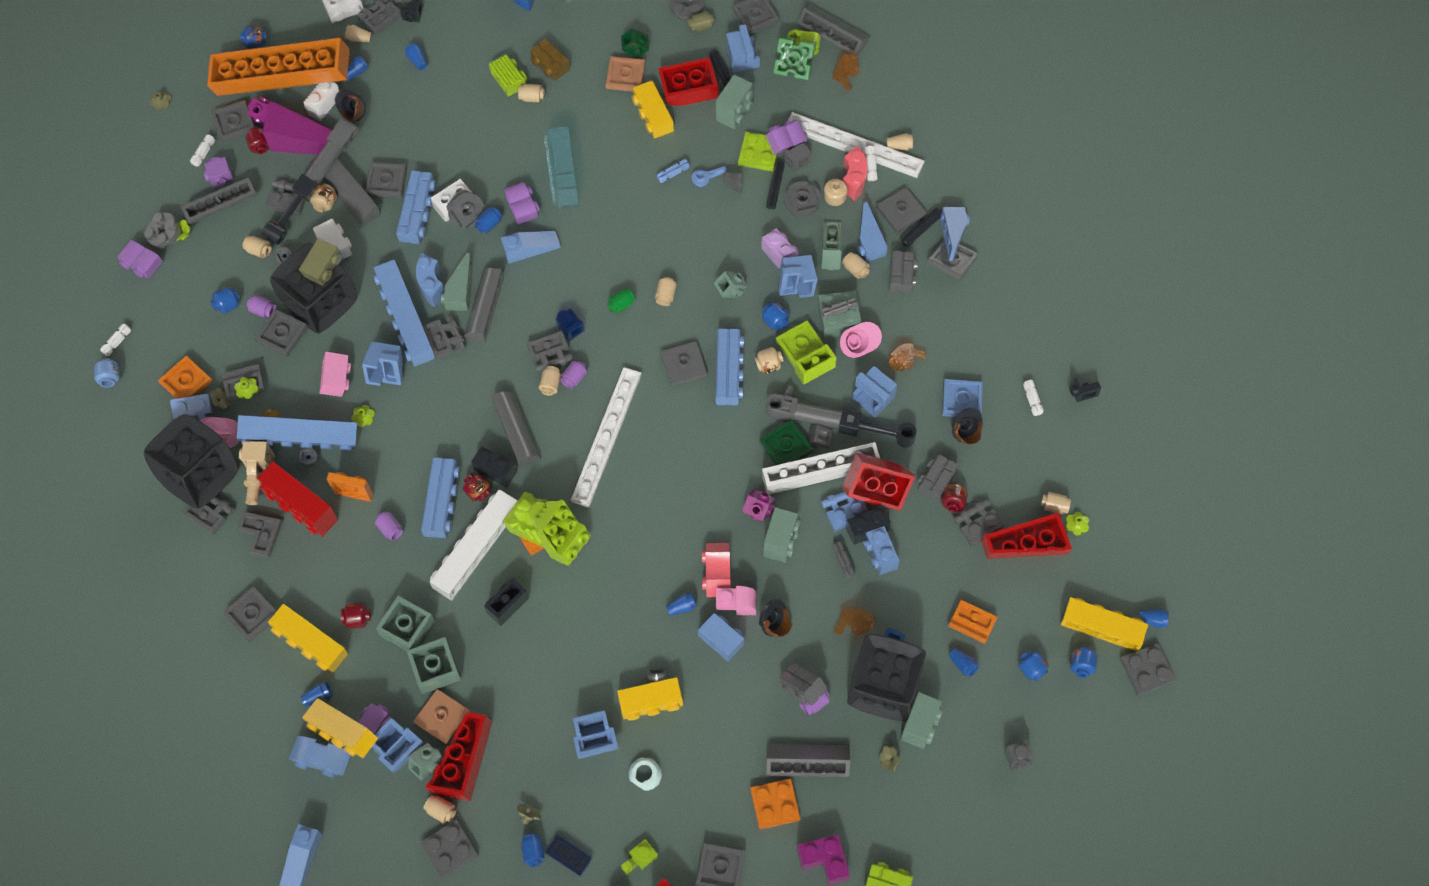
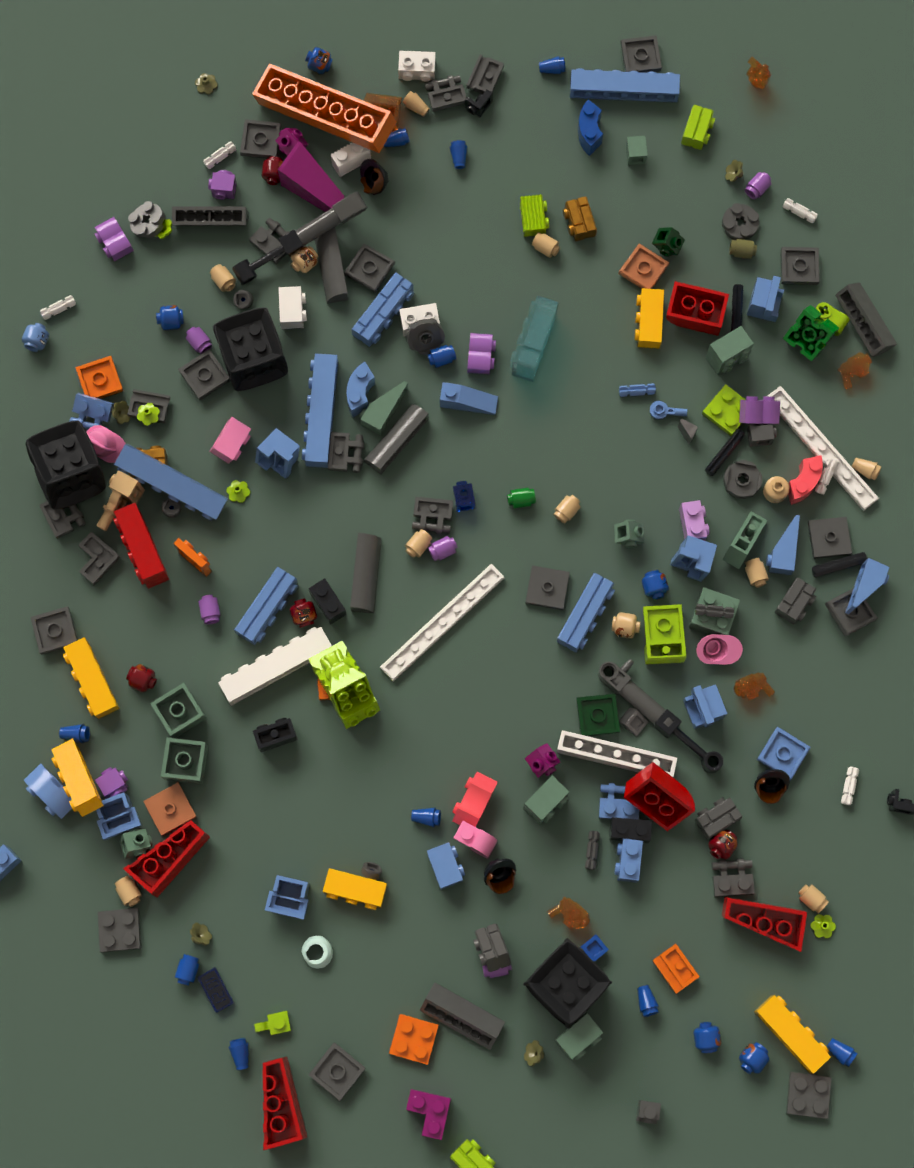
camera: 25 degrees right, 10 degrees up
(321, 262) = (264, 334): olive brick -> none

